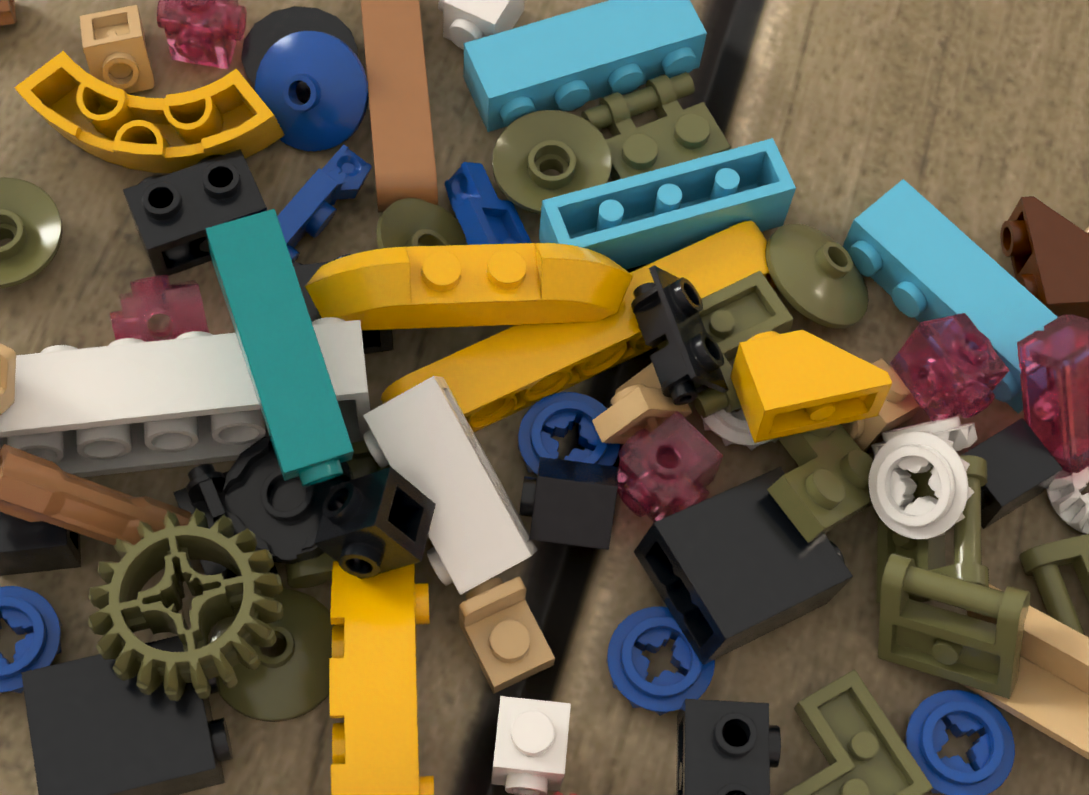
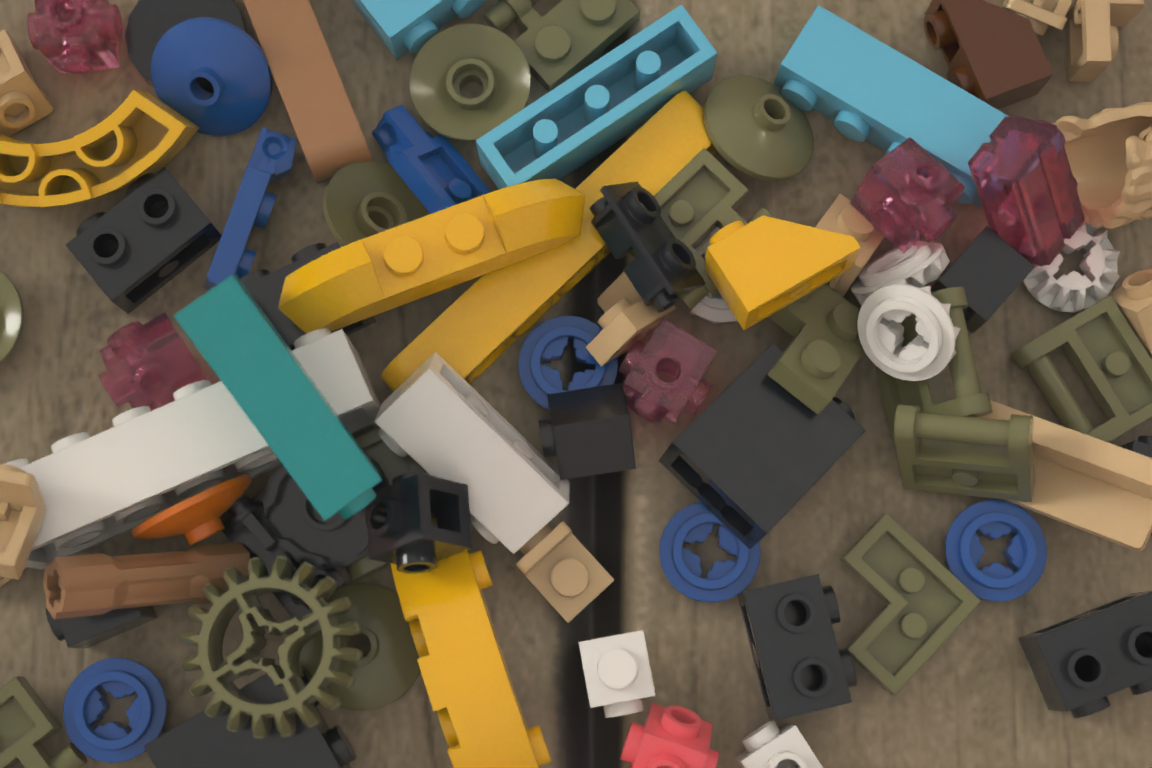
camera: 10 degrees left, 15 degrees up
(154, 459) = (196, 516): none -> orange dish

